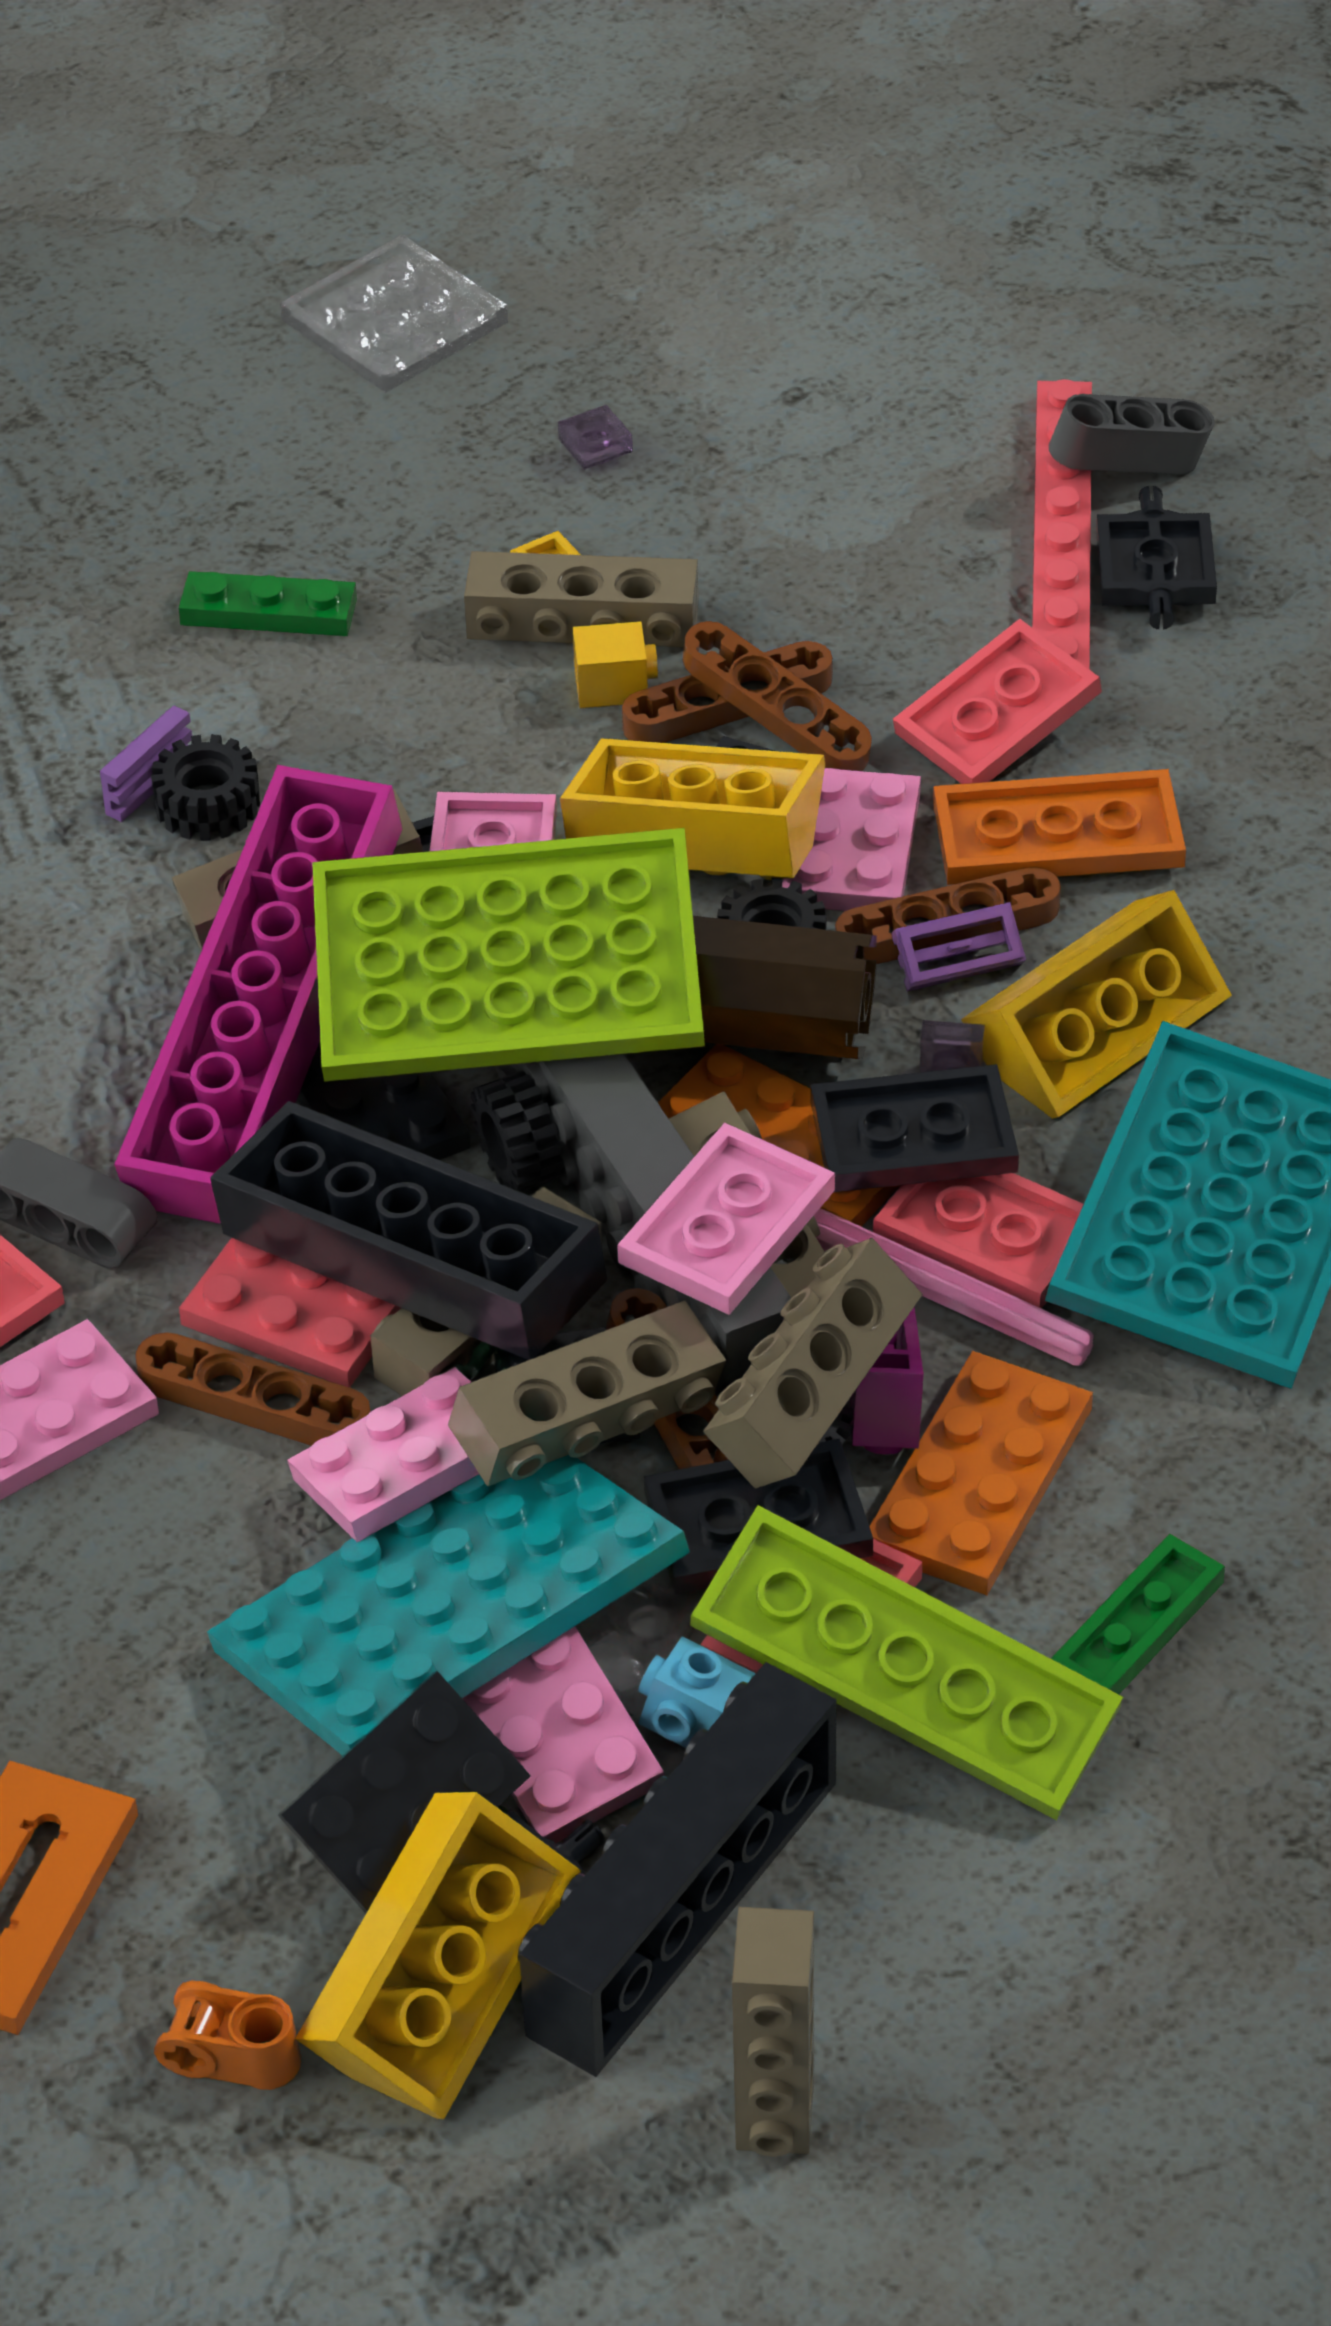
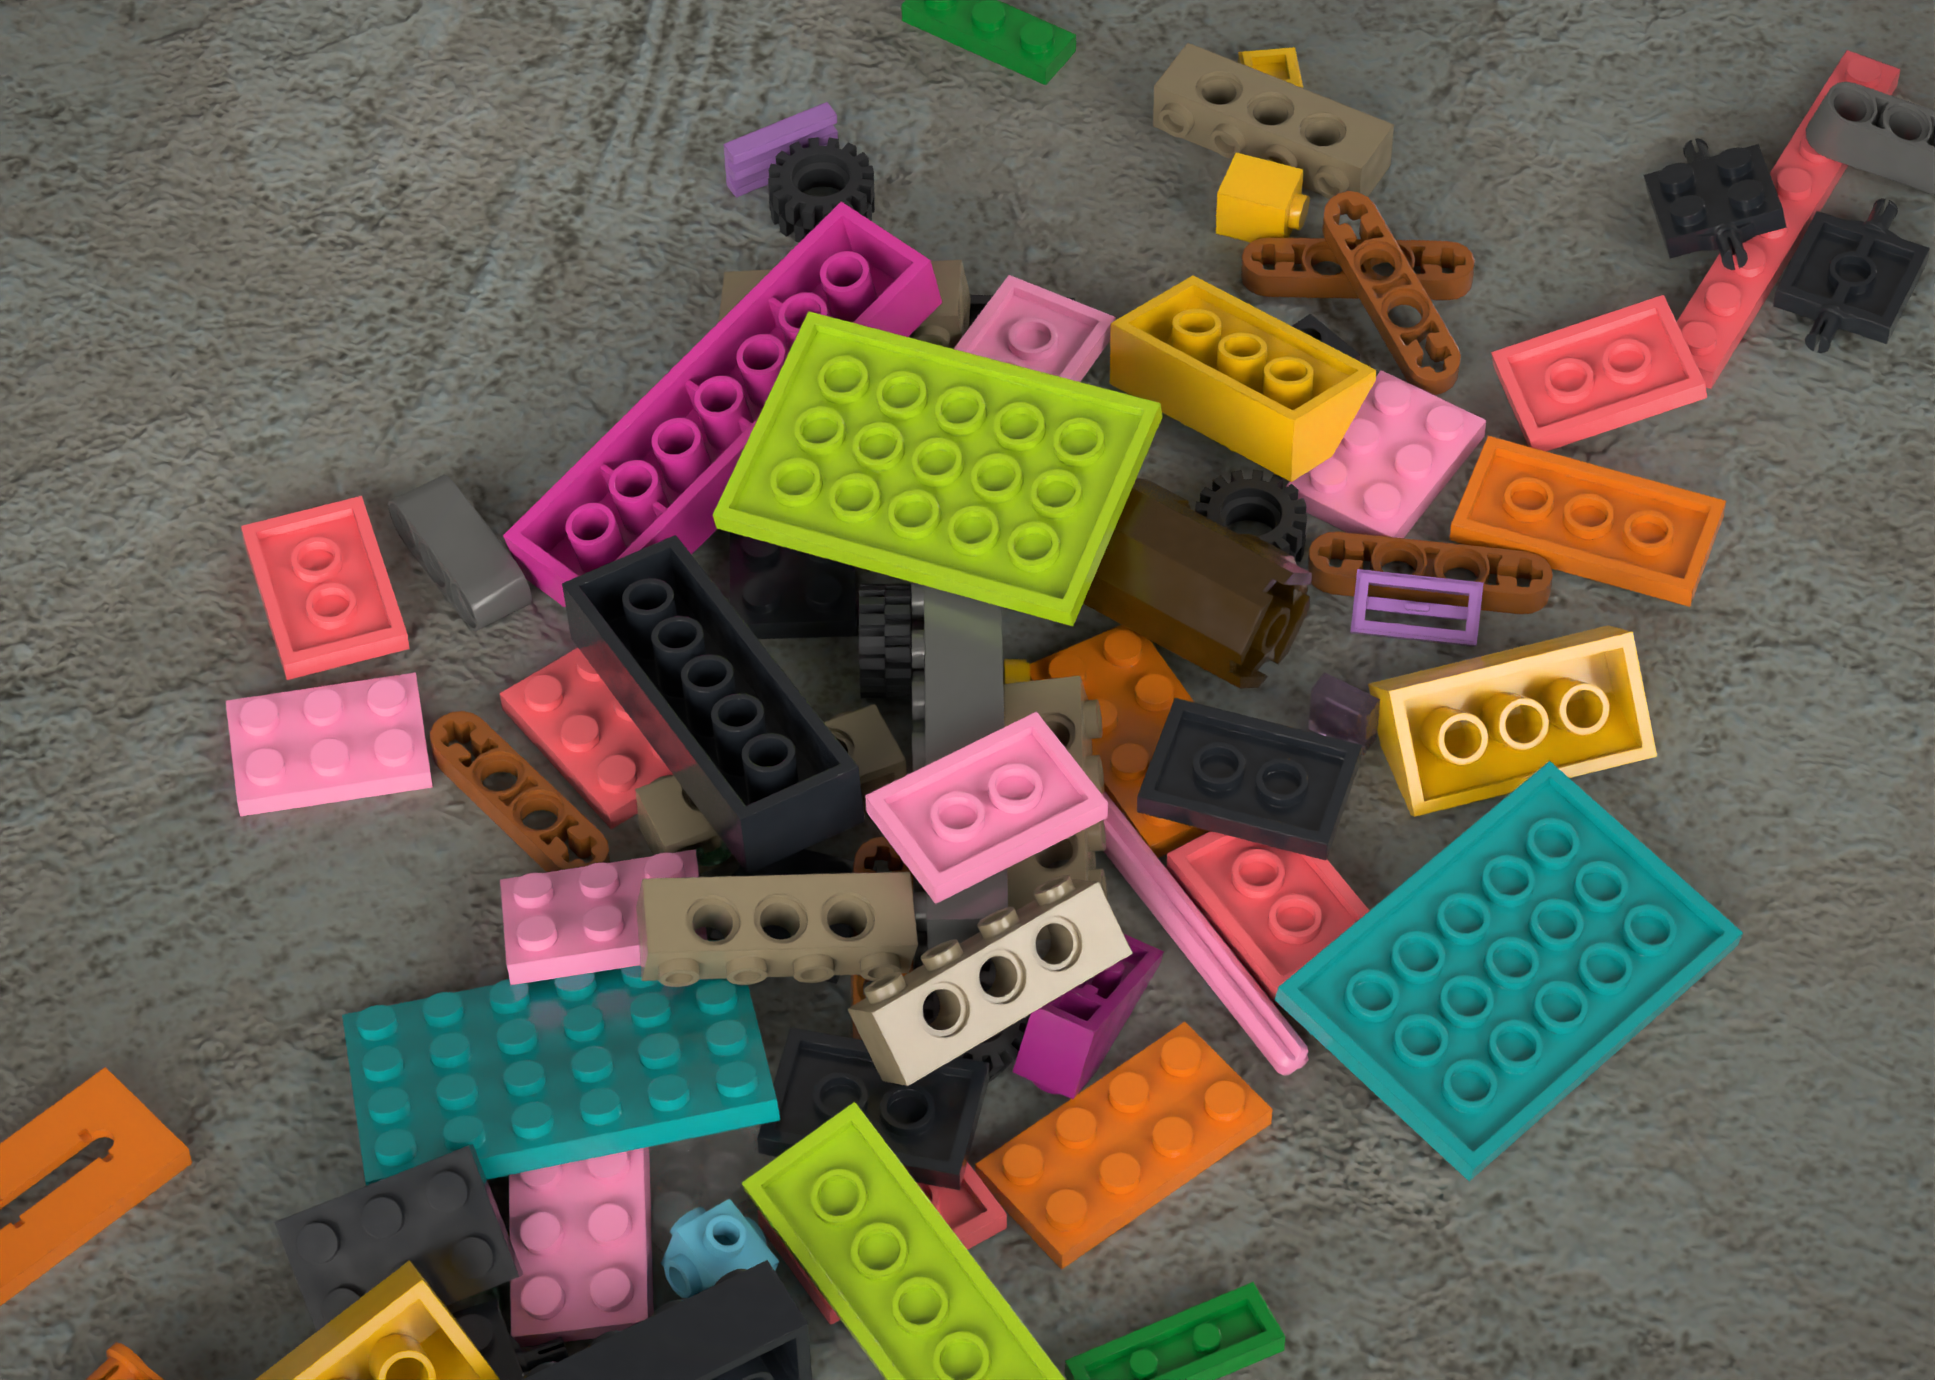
camera: 25 degrees right, 5 degrees up
(1007, 535) = (1715, 202): none -> black plate

